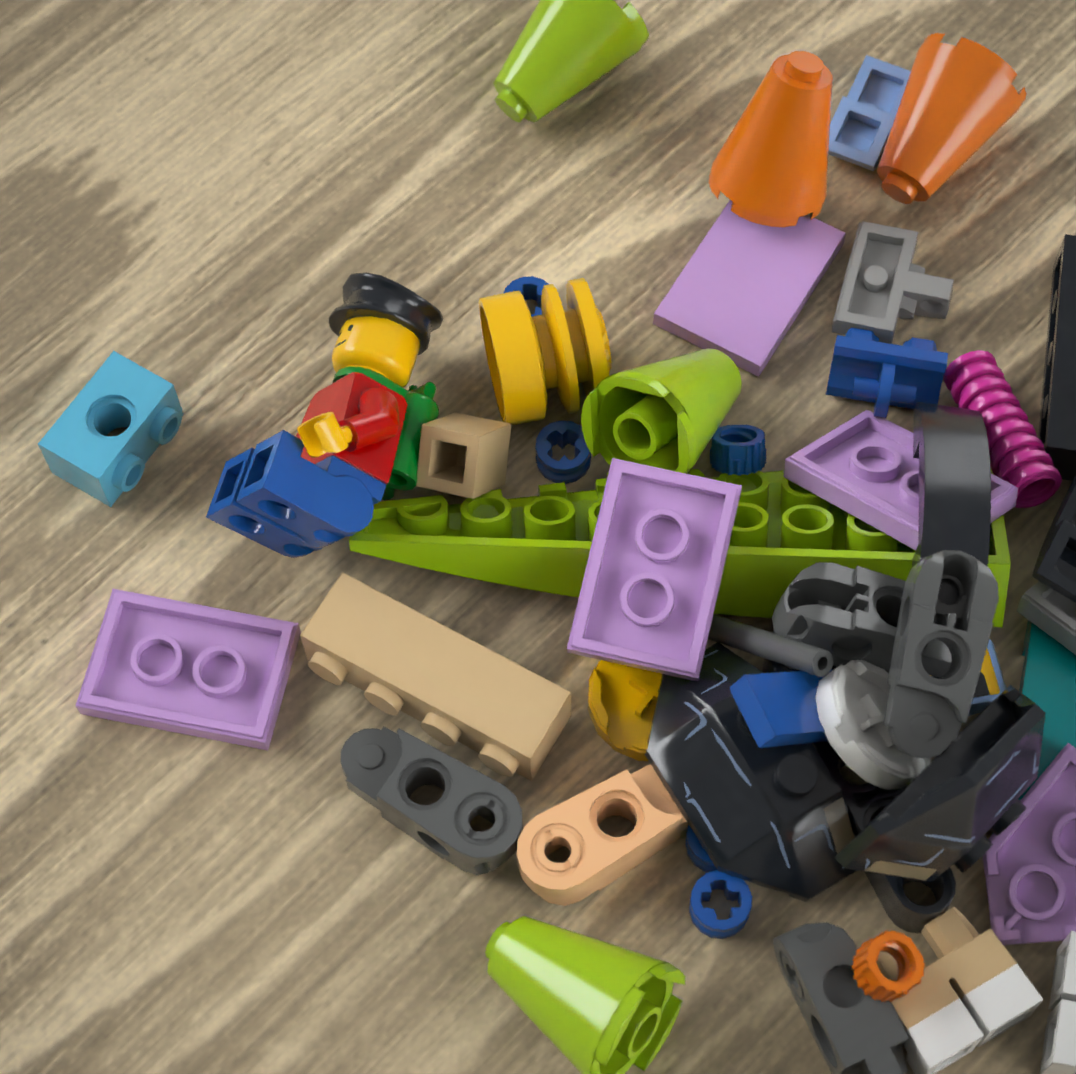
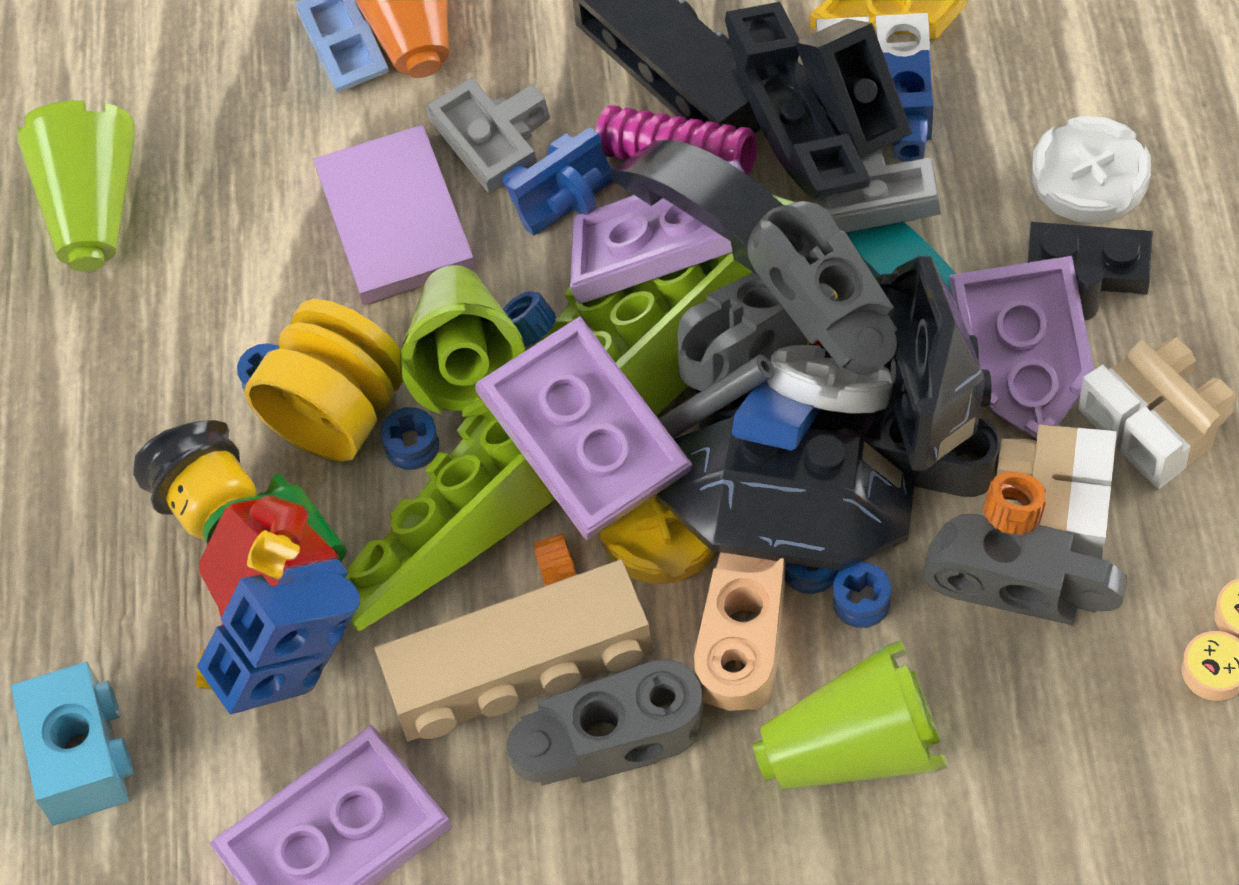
camera: 45 degrees left, 5 degrees down
(463, 455) = (354, 498): tan brick -> none
(542, 646) = (554, 559): none -> orange axle
(780, 145) = (321, 102): orange cone -> none

